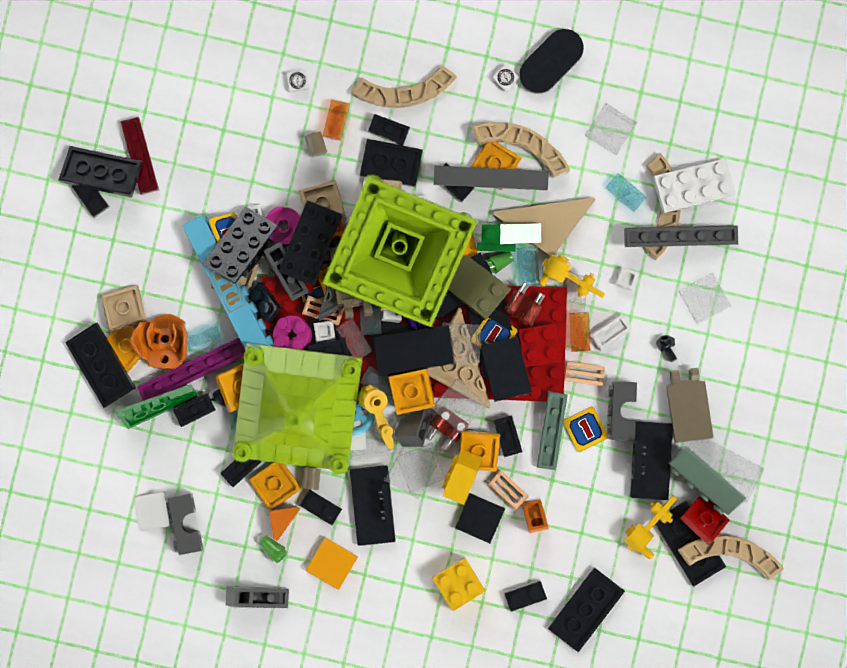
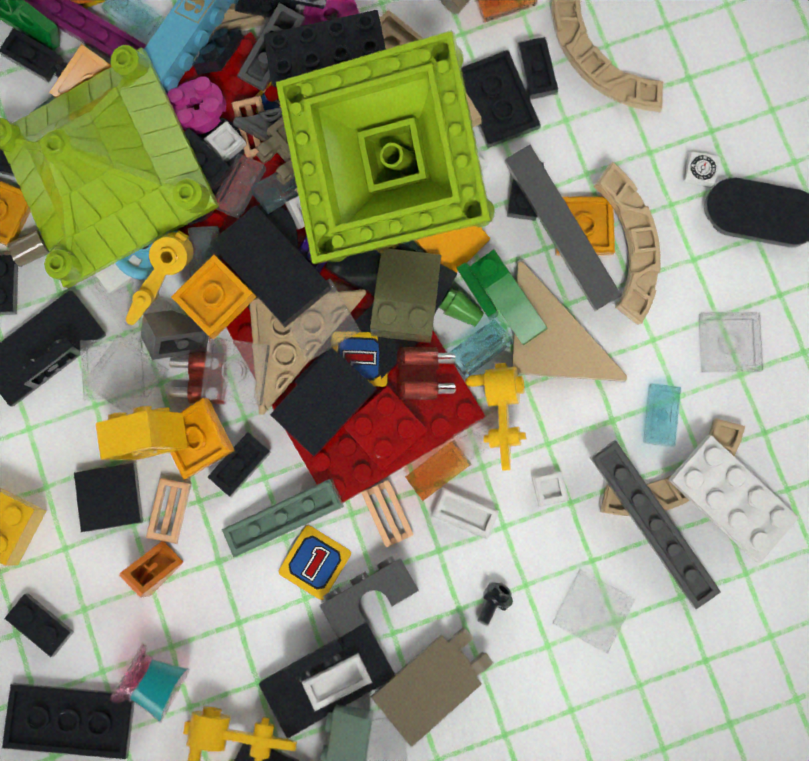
camera: 60 degrees right, 5 degrees down
(596, 551) = (150, 684): none -> hat
(656, 455) = (336, 681): none -> white tile

